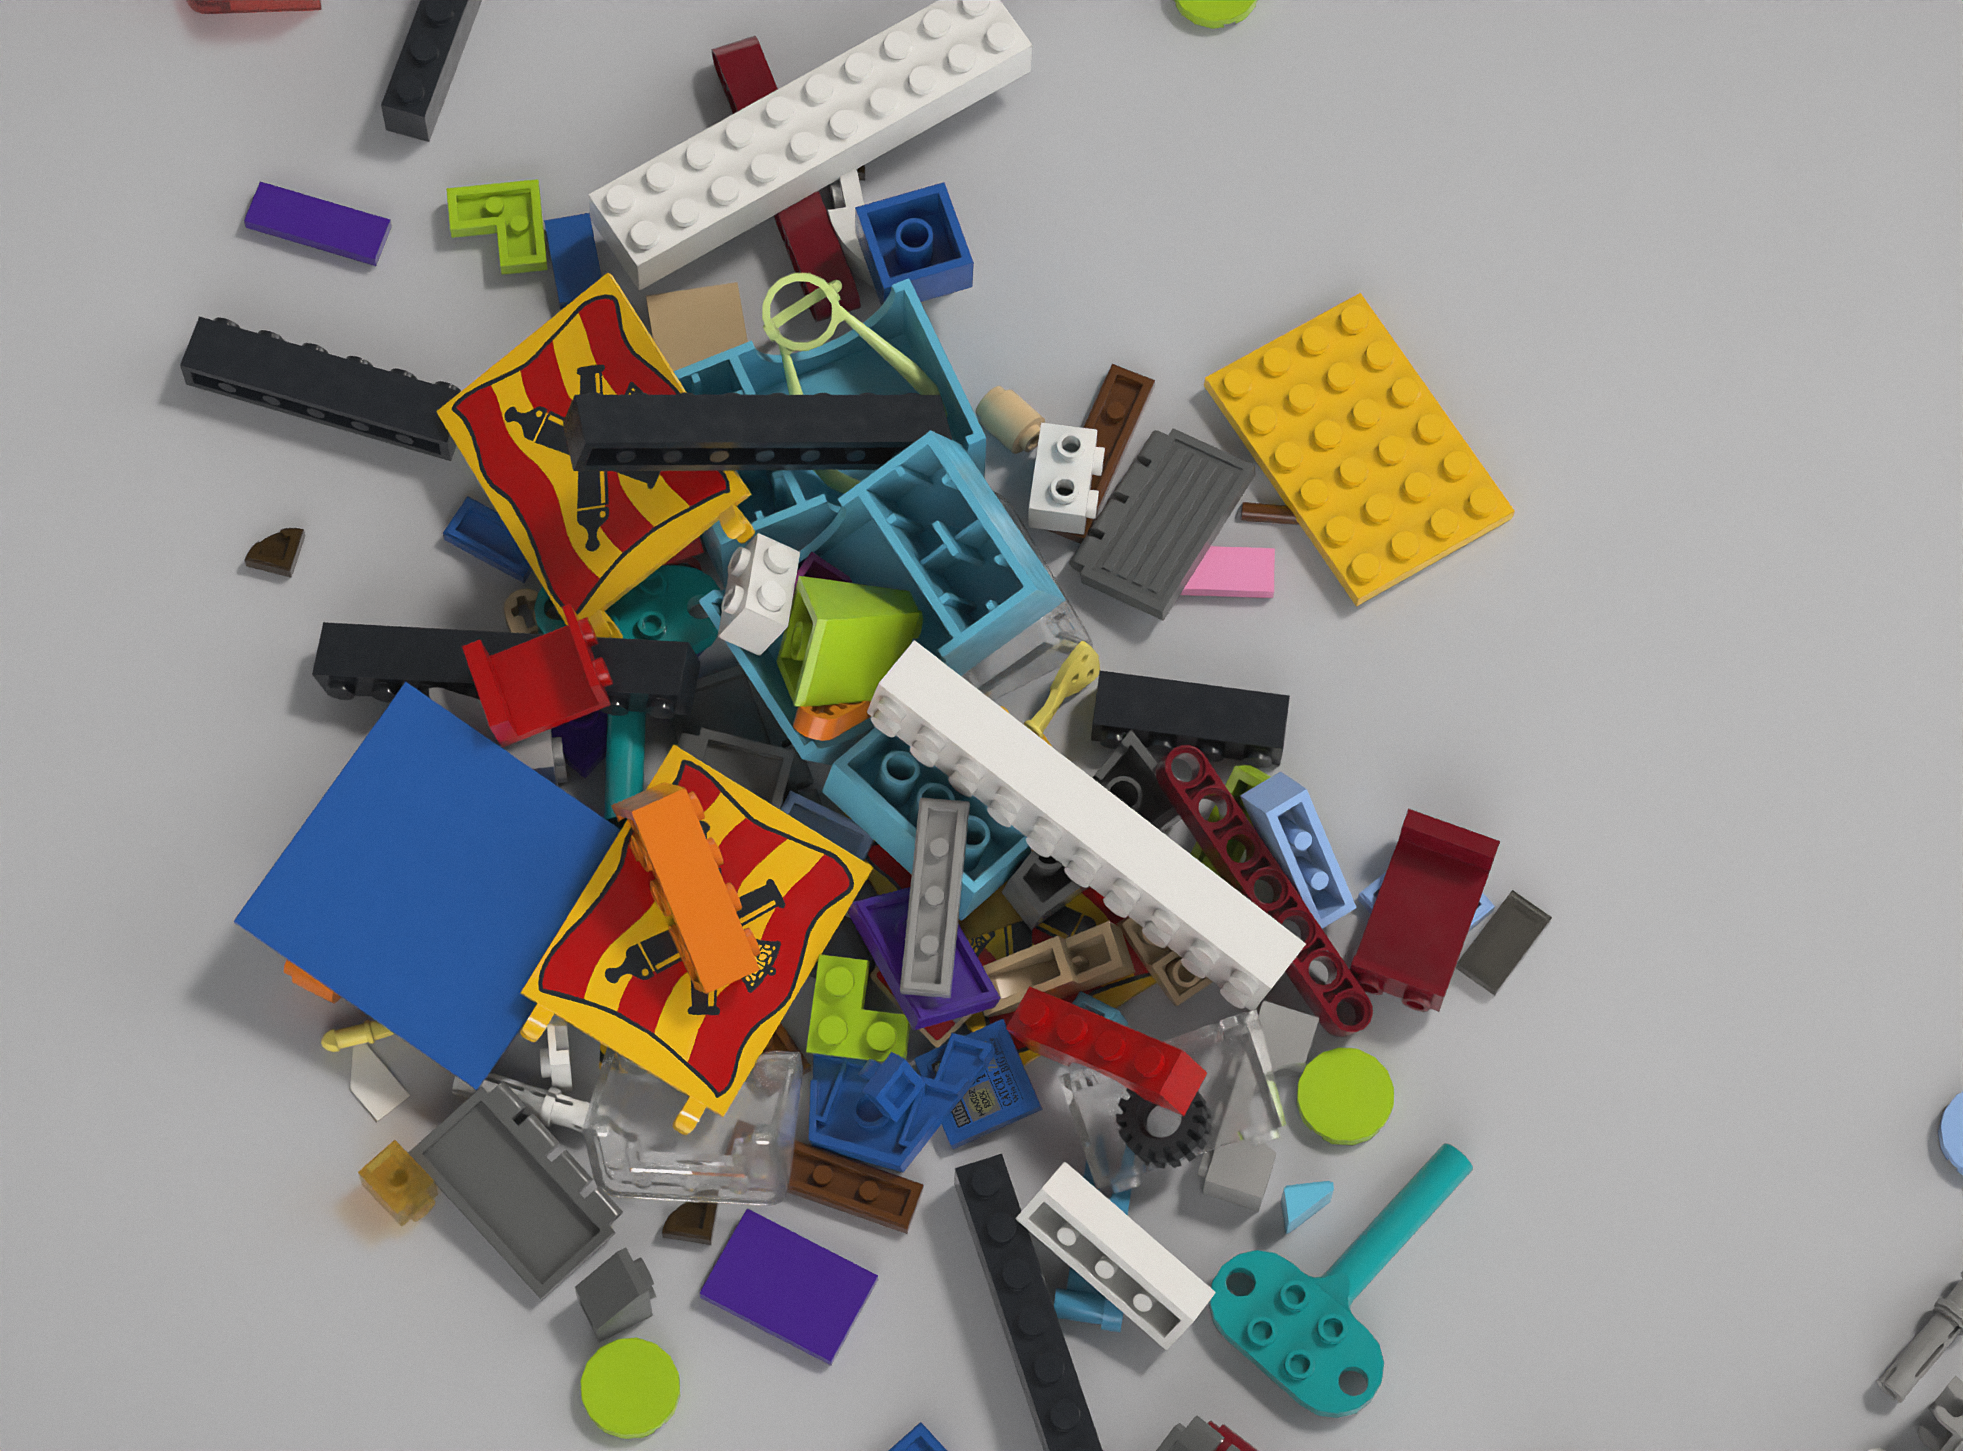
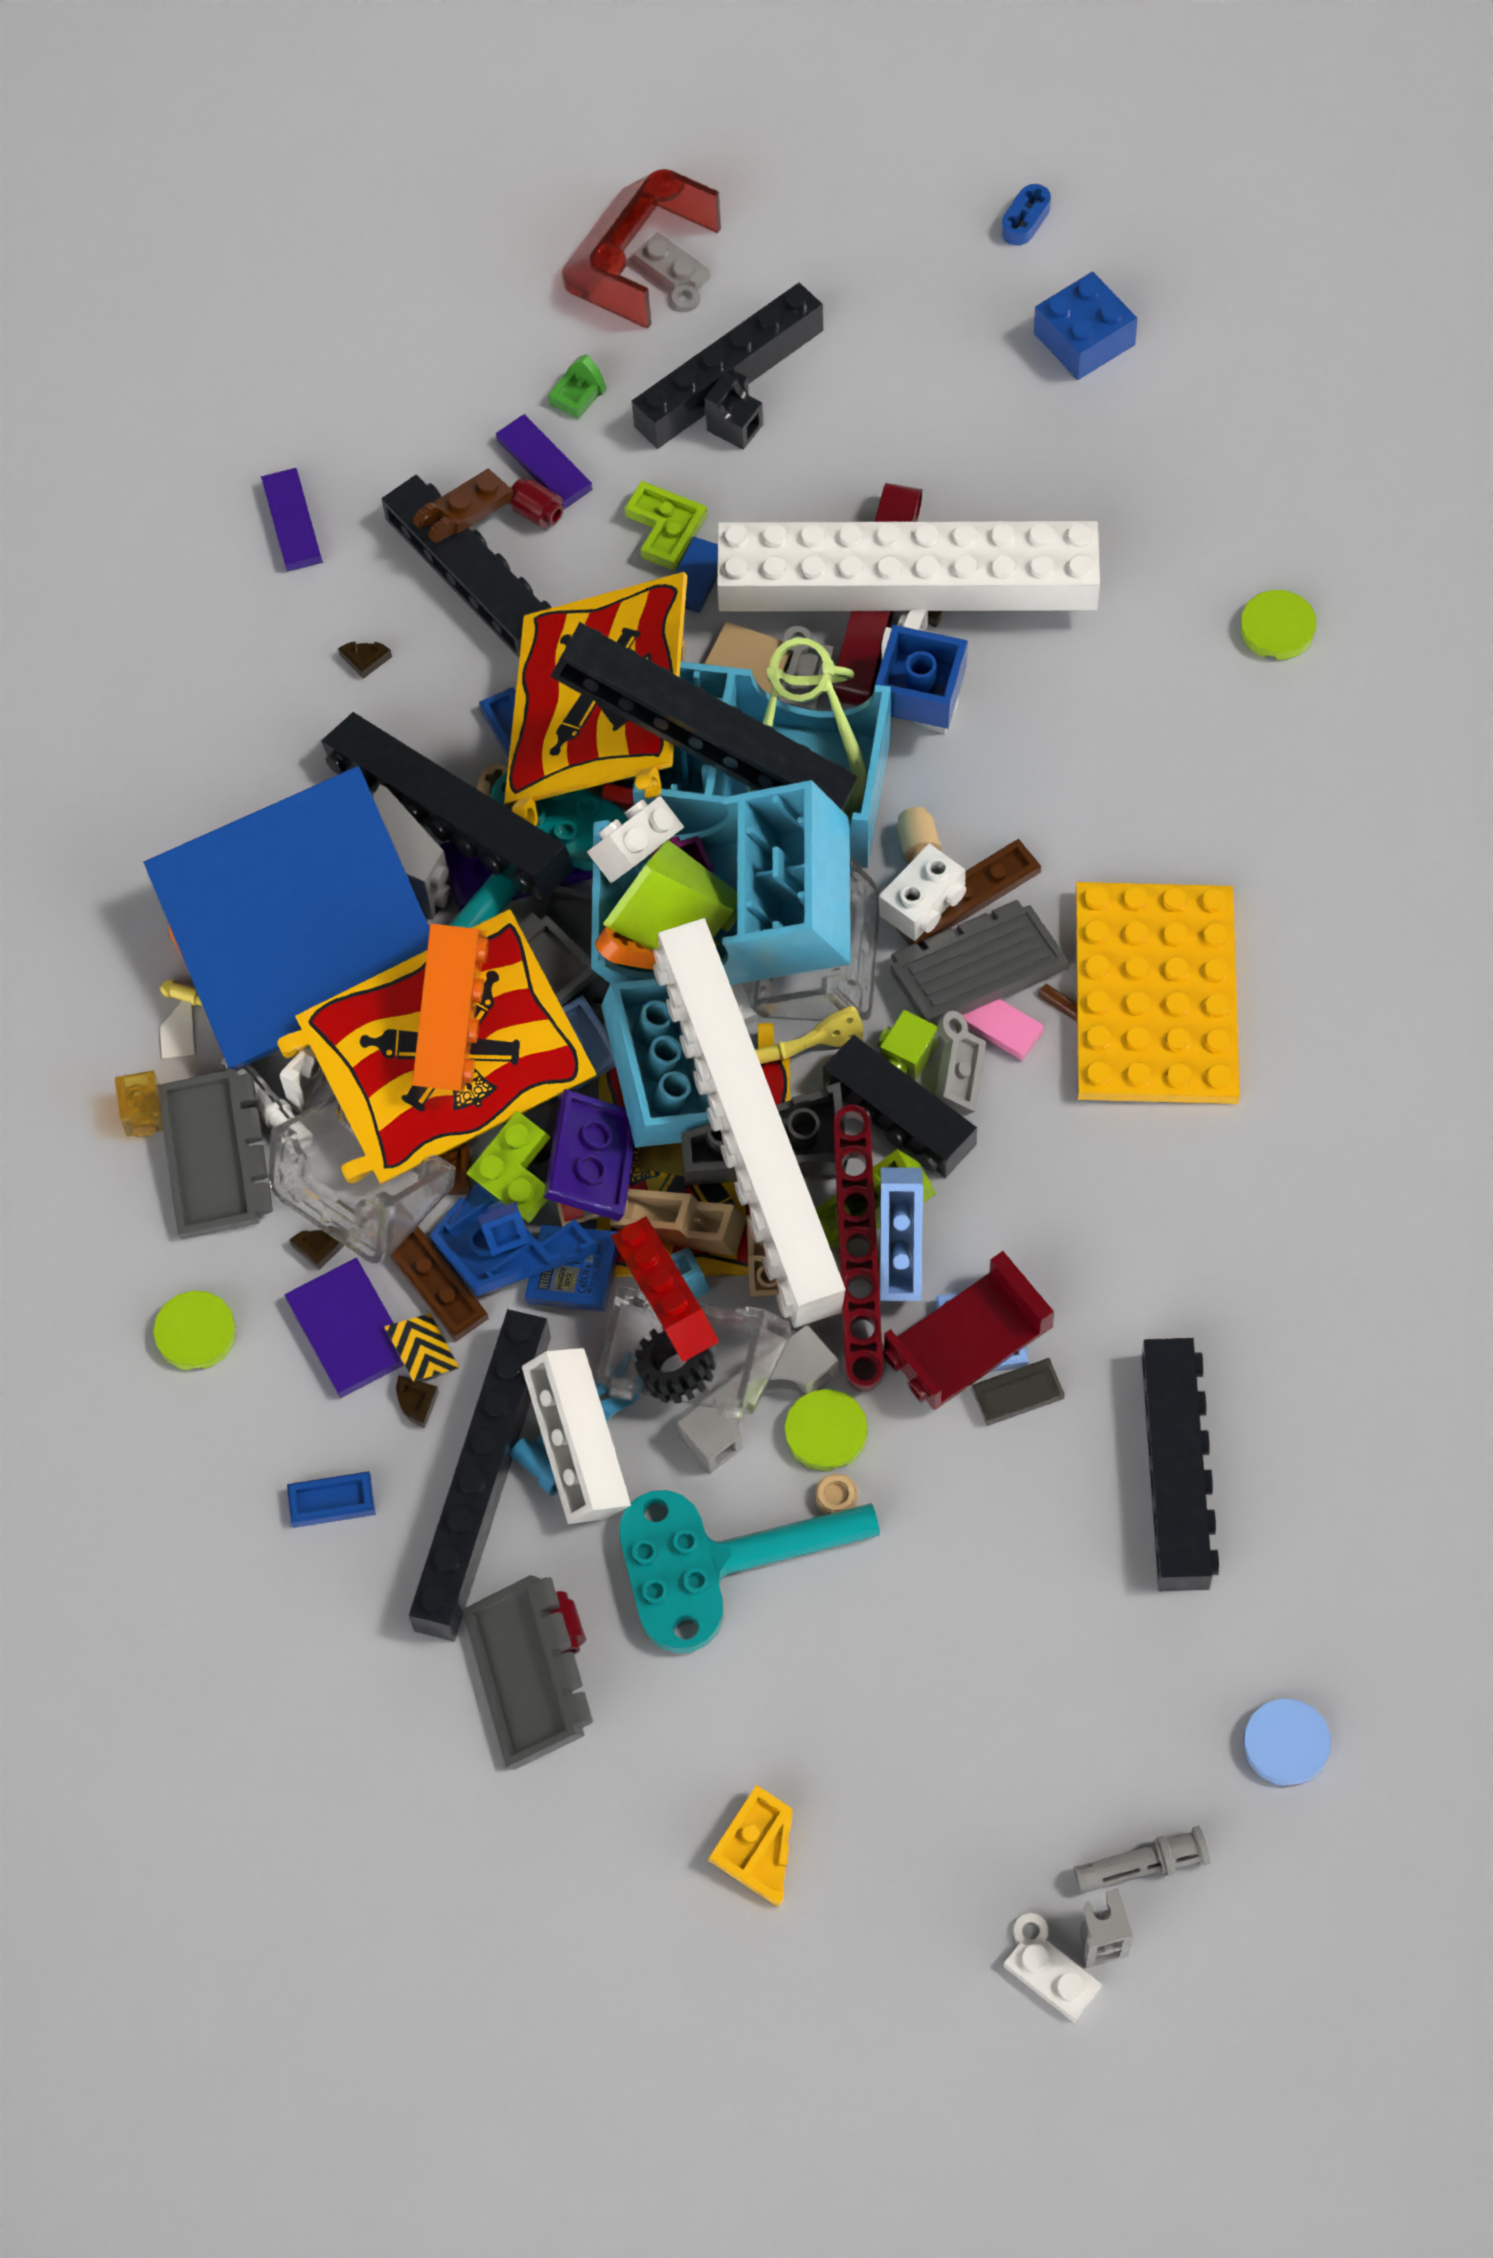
camera: 40 degrees right, 5 degrees down
(83, 442) = (291, 519): none -> dark purple tile
(282, 321) = (463, 506): none -> reddish brown hinge
(296, 118) = (578, 387): none -> bright green tile
(347, 276) = (536, 503): none -> dark red brick
(491, 56) = (732, 411): none -> black brick
(540, 680) = (448, 817): red panel -> none
(616, 1294) = (224, 1260): dark grey slope -> none
(755, 290) = (804, 662): none -> light grey hinge
(881, 1261) = (421, 1347): none -> sticker
(911, 1319) = (416, 1399): none -> dark brown tile
(935, 897) = (614, 1112): light grey tile -> none
(1154, 646) = (909, 1043): none -> lime brick
(1220, 639) = (959, 1064): none -> light grey hinge
(1303, 1201) = (740, 1484): medium azure slope -> none
(1400, 1156) = (836, 1493): none -> tan tile
(1708, 922) = (1177, 1465): none -> black brick

